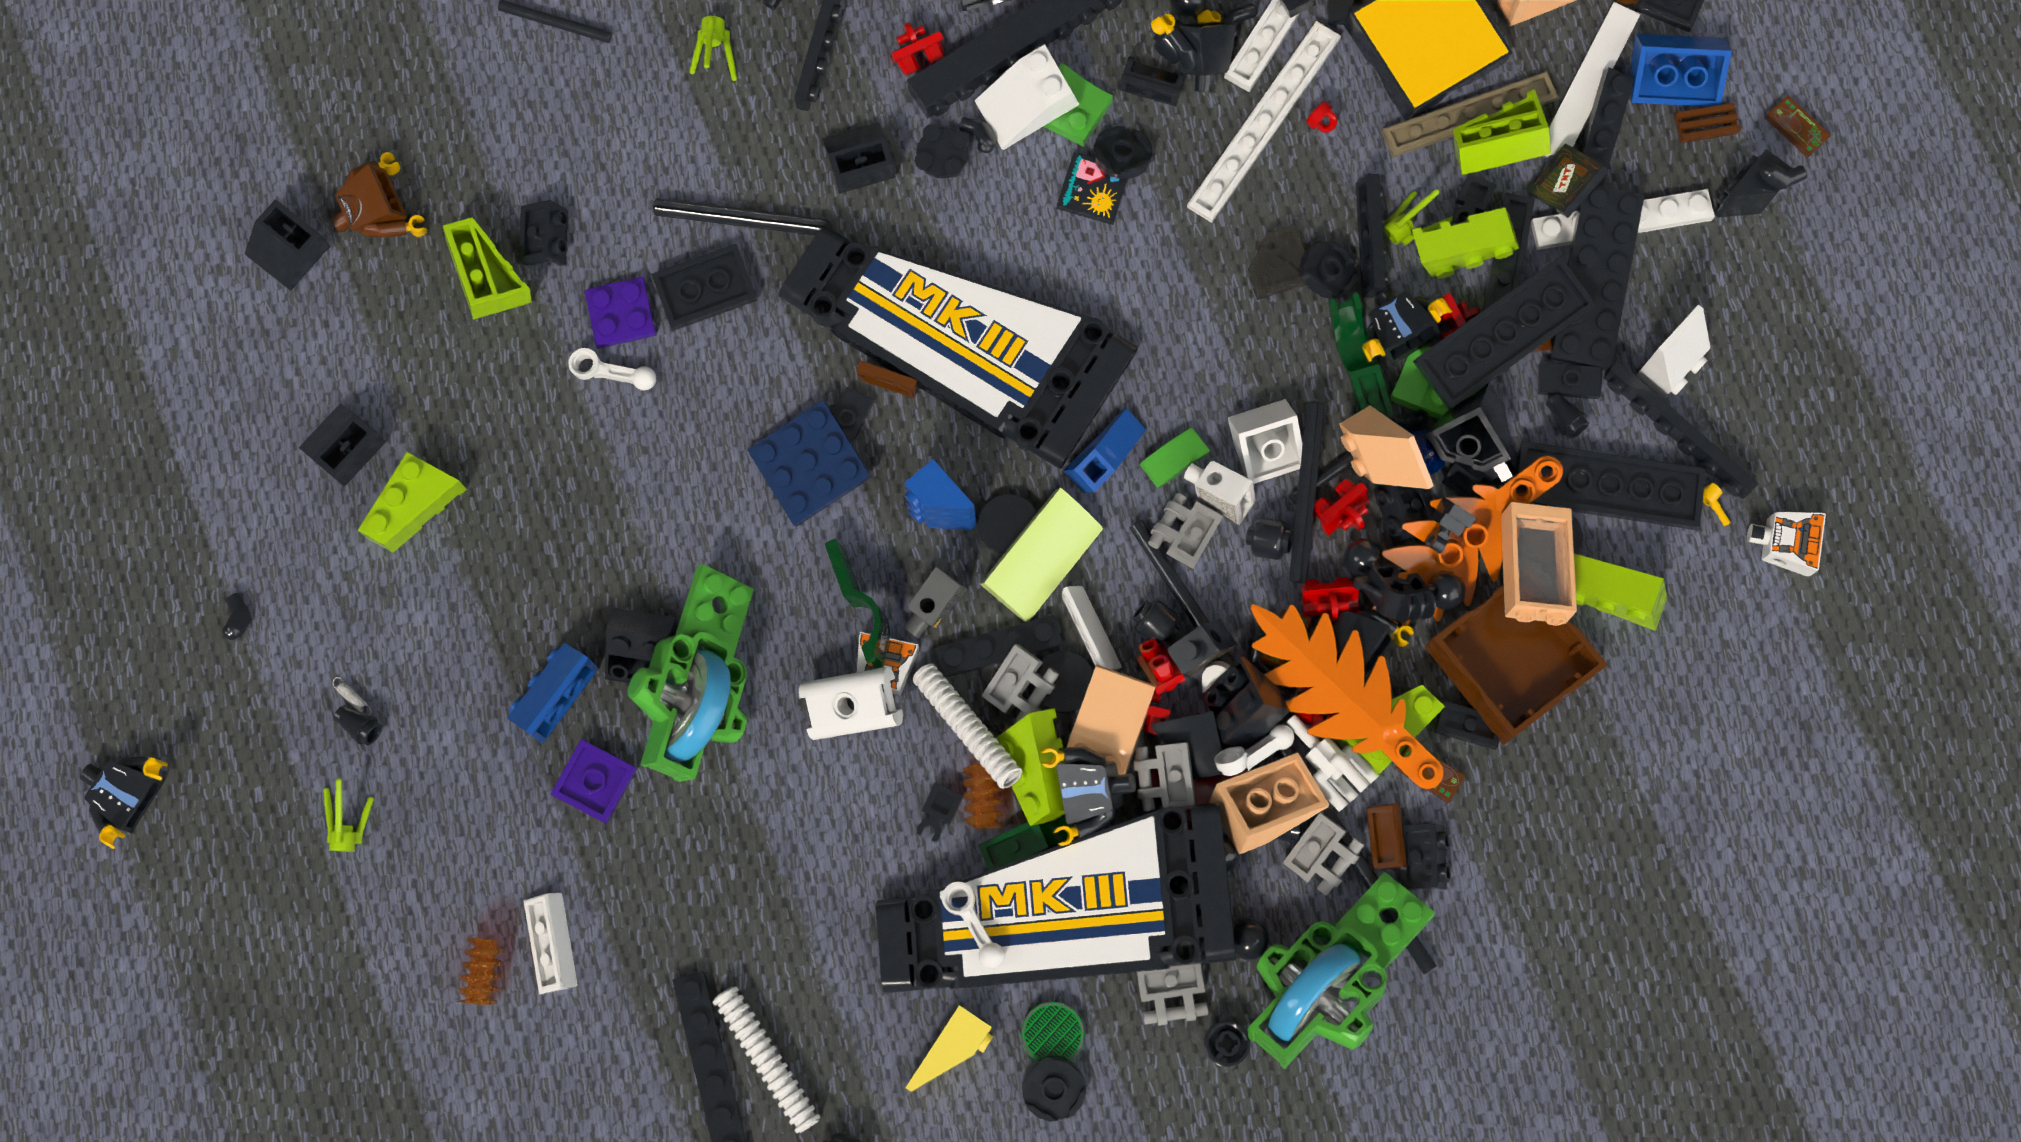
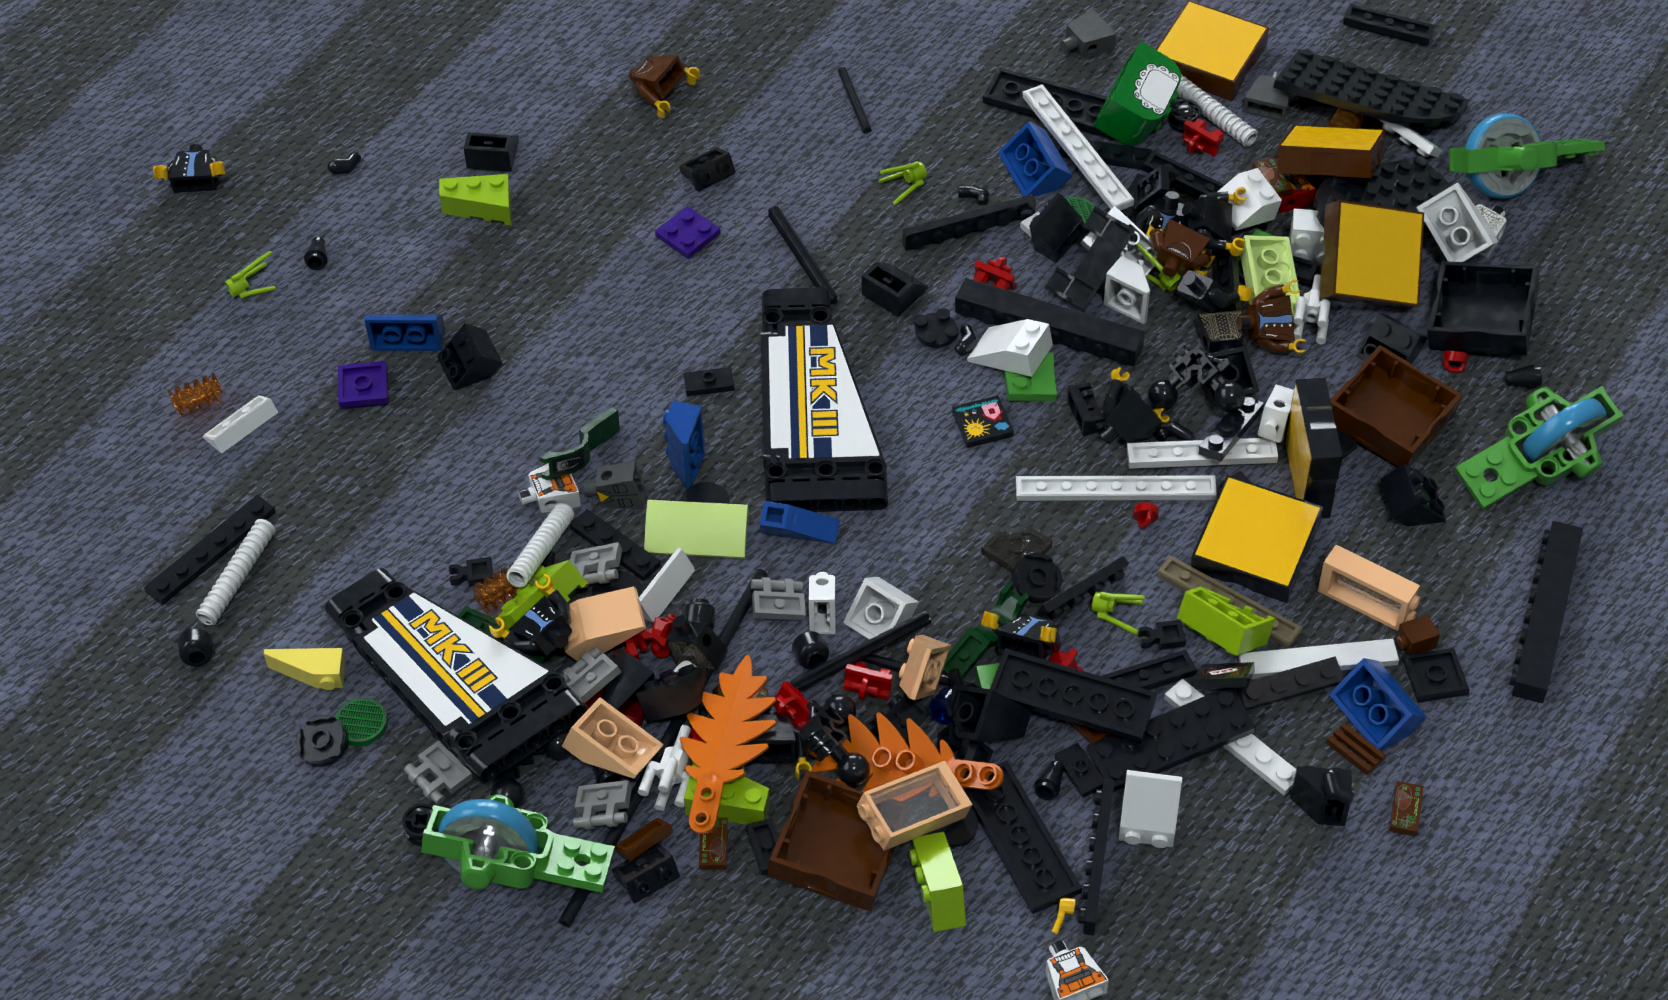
camera: 55 degrees right, 25 degrees down
(284, 245) = (599, 55): black slope -> none
(351, 696) = (333, 243): white piece -> none
(482, 271) = (655, 149): lime wedge -> none
(642, 377) = (651, 264): white piece -> none
(698, 691) = (441, 391): bright green piece -> none
(704, 287) = (738, 261): black plate -> none
(809, 463) = (661, 375): dark blue plate -> none
(871, 698) = (510, 477): white piece -> none
(887, 379) = (752, 383): reddish brown tile -> none
(990, 954) = (387, 636): white piece -> none
(1122, 152) = (1020, 420): black tile -> none
(1174, 457) = (820, 561): bright green slope -> none
(1236, 759) = (666, 729): white piece -> none
(1451, 519) = (904, 736): black piece -> none
(1466, 243) = (1119, 637): lime wedge -> none

